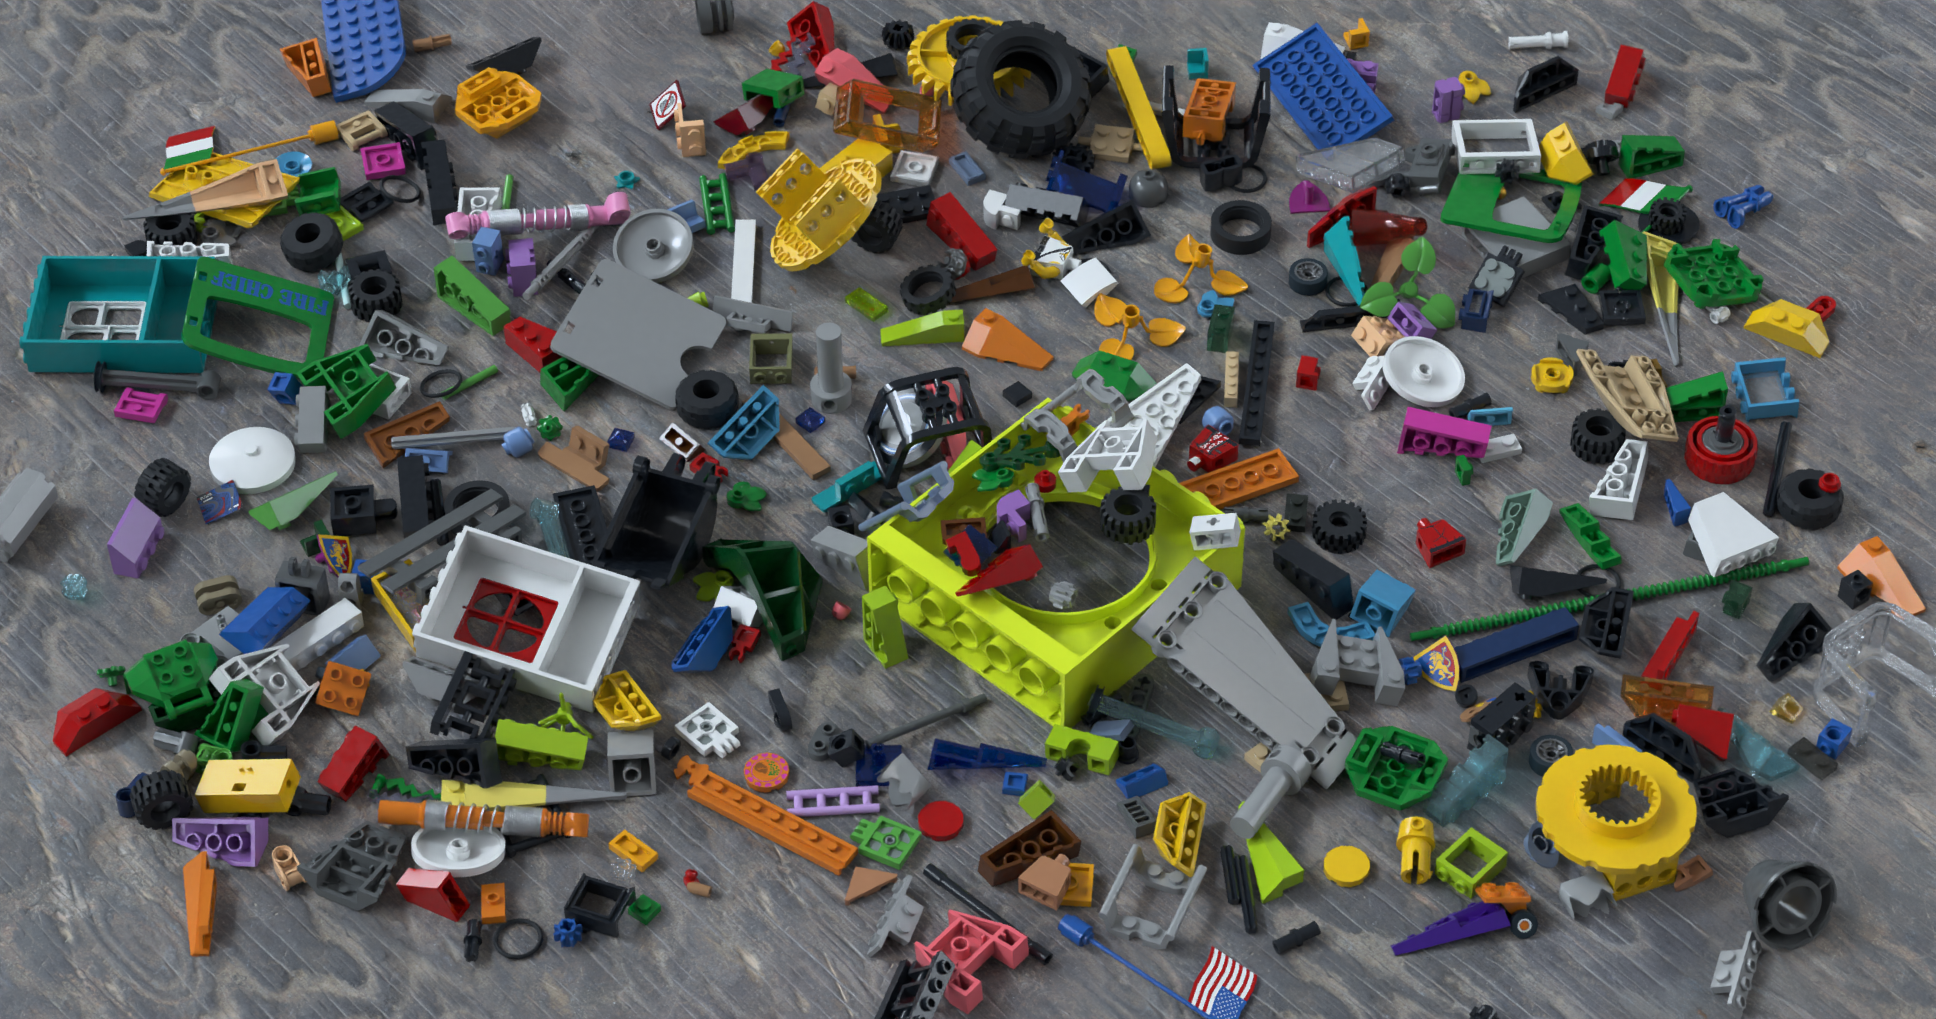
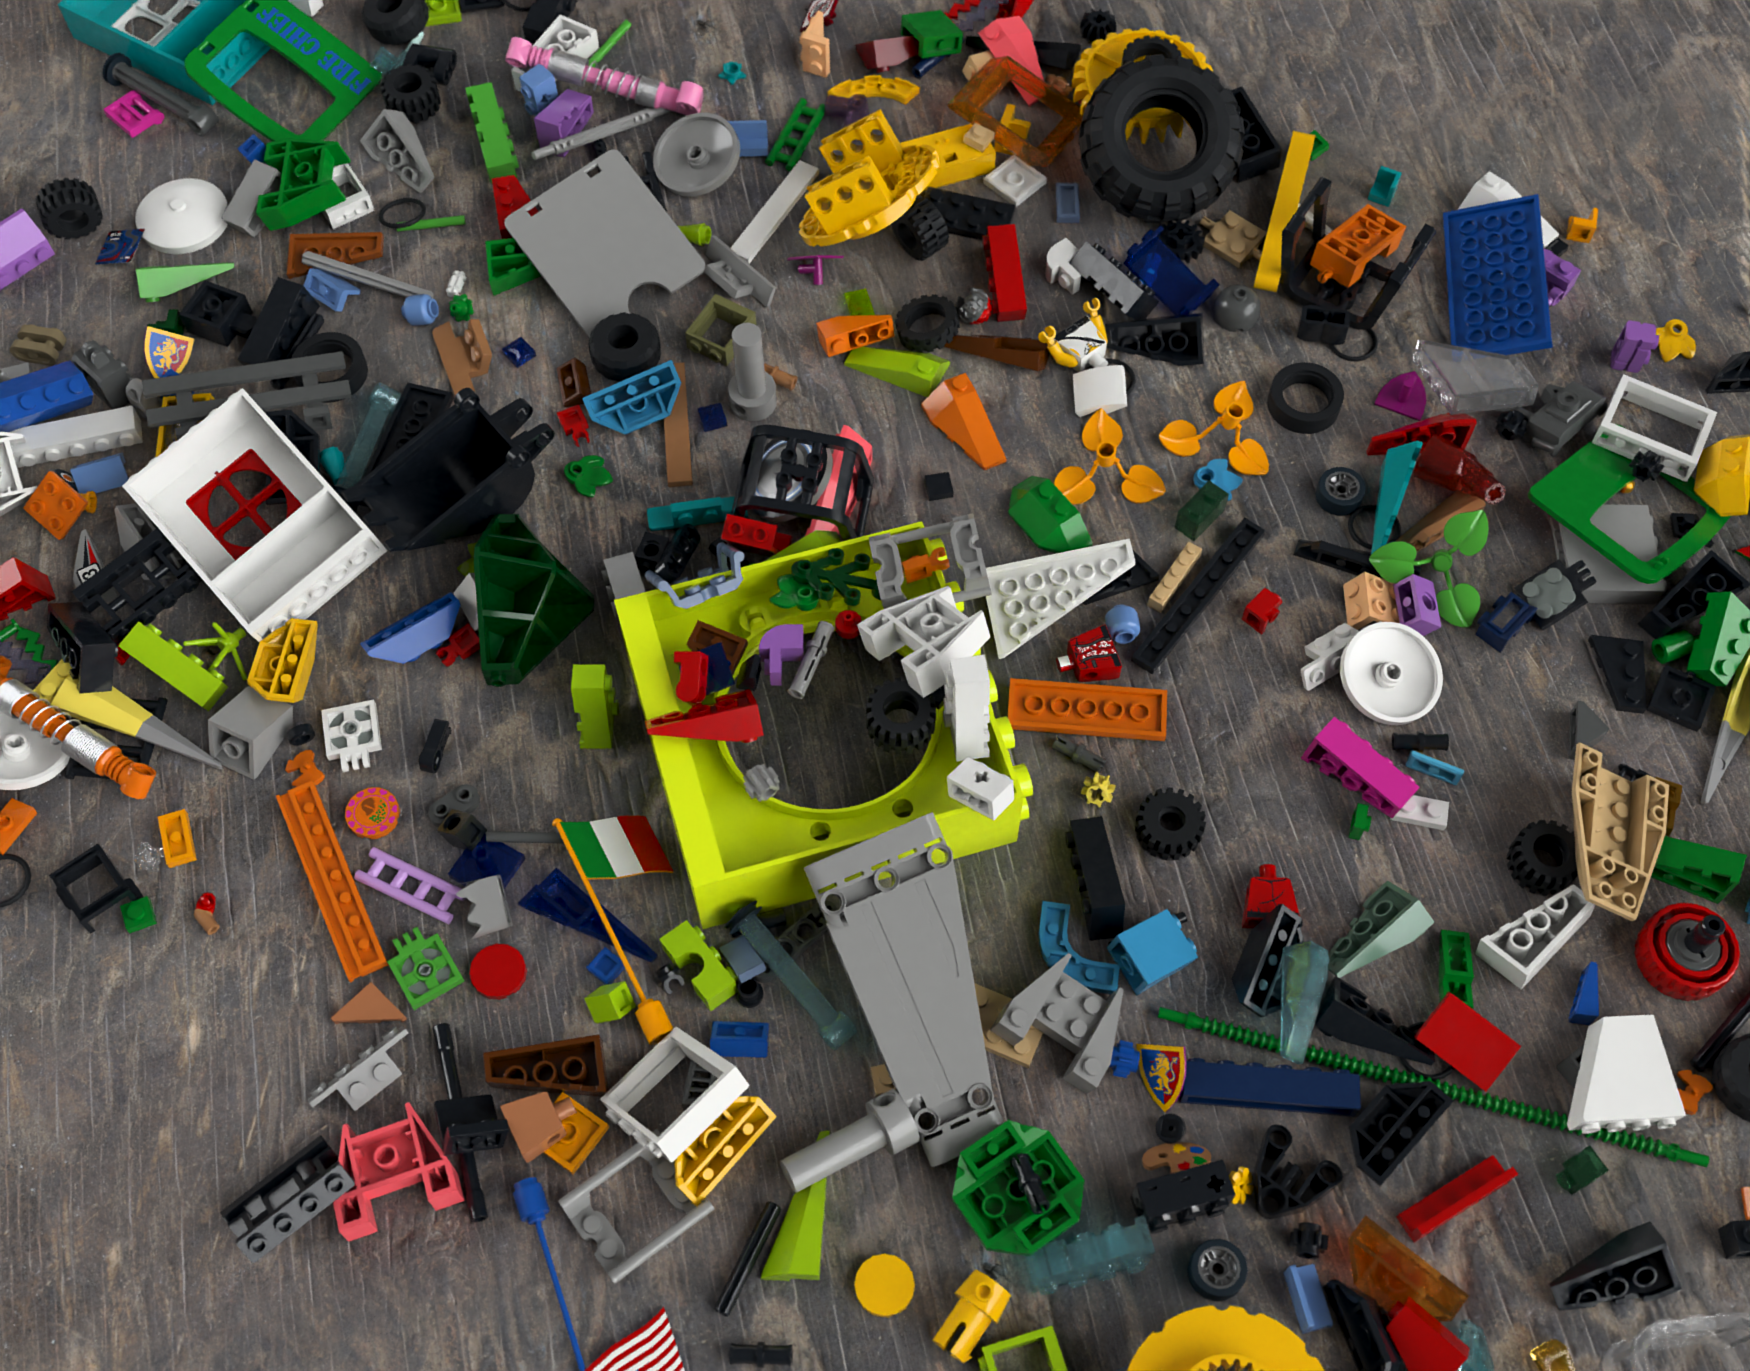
camera: 30 degrees right, 15 degrees up
(409, 719) = (89, 563): none -> light grey slope
(567, 932) = (42, 903): blue gear -> none
(810, 288) = (815, 268): none -> magenta shield
(840, 610) = (582, 655): coral hinge -> none
(872, 145) = (978, 137): none -> tan plate
(874, 319) = (852, 332): none -> orange slope
(903, 85) = (1059, 83): none -> medium nougat axle
(918, 461) = (754, 536): none -> red panel
(973, 707) = (618, 850): none -> flag
(1003, 904) = (469, 1124): none -> black bracket
(1160, 781) = (652, 1070): none -> white window
(1175, 481) = (967, 706): none -> white wedge
(1230, 875) = (747, 1221): black axle -> none
(1296, 512) = (1136, 779): pearl dark grey plate -> none
(1462, 571) = (1260, 964): none -> black wedge
(1497, 573) = (1302, 990): none -> clear light blue wedge
(1546, 383) = (1532, 757): yellow plate -> none
(1596, 712) = (1308, 1240): none -> black gear
(1619, 559) = (1467, 1041): none -> red tile
(1775, 525) = (1694, 1091): none -> orange piece

